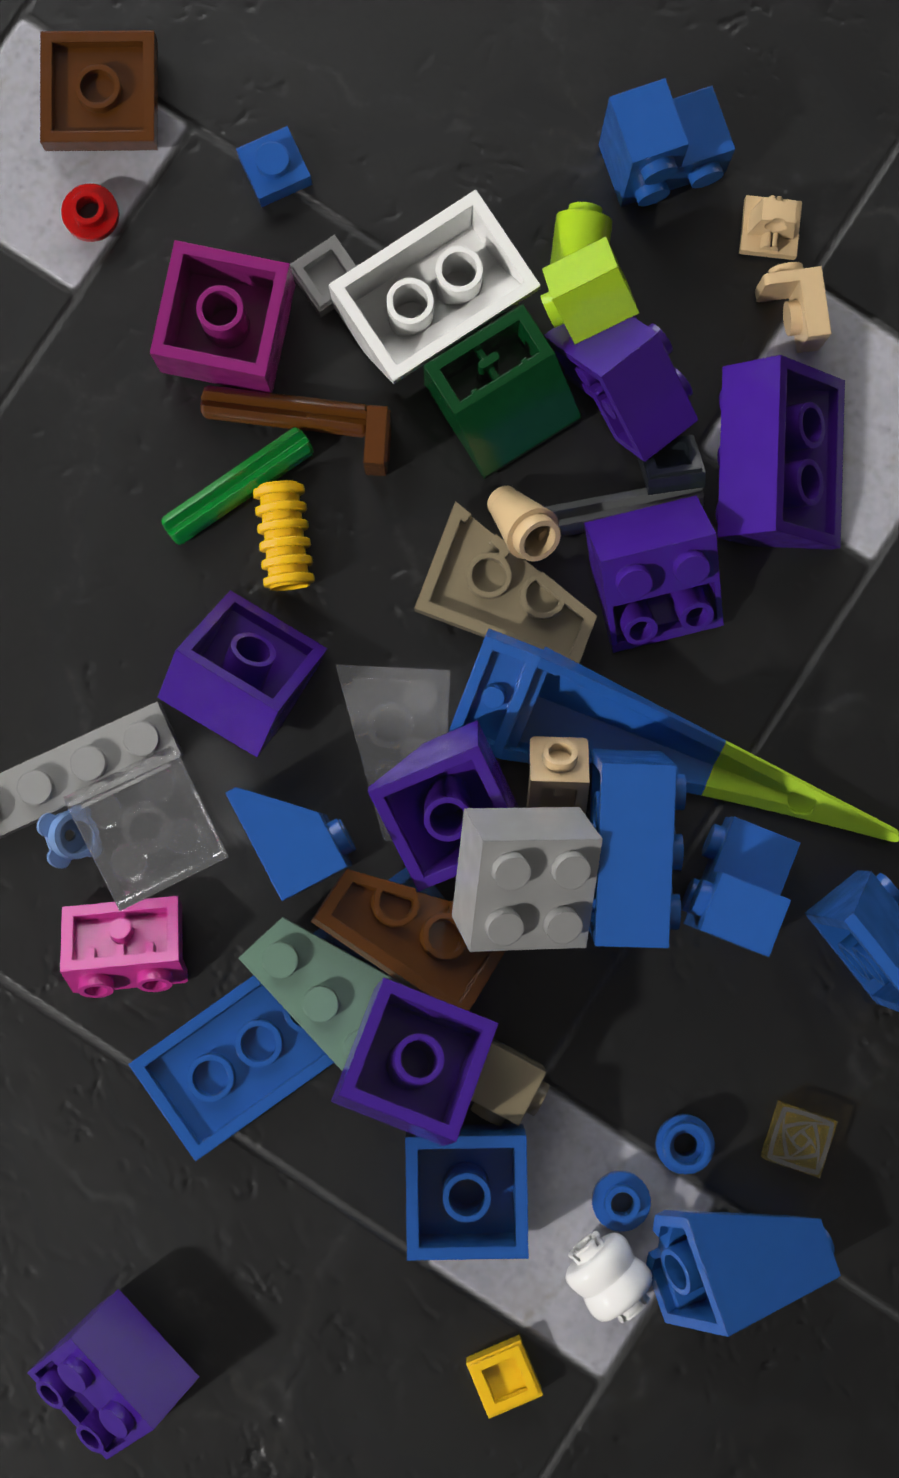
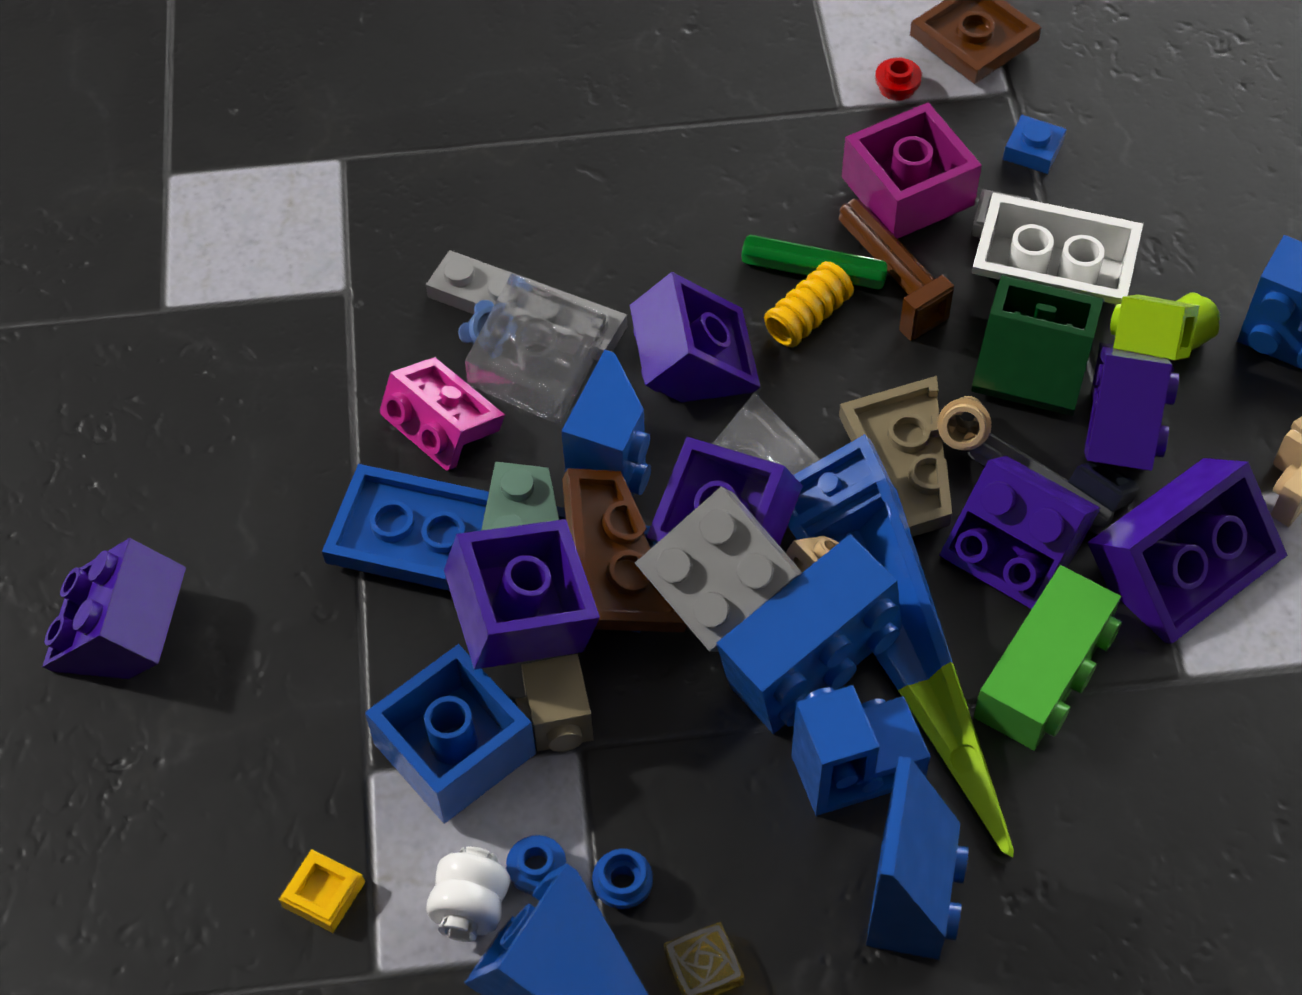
camera: 55 degrees right, 30 degrees down
(783, 660) = (1049, 659): none -> bright green brick

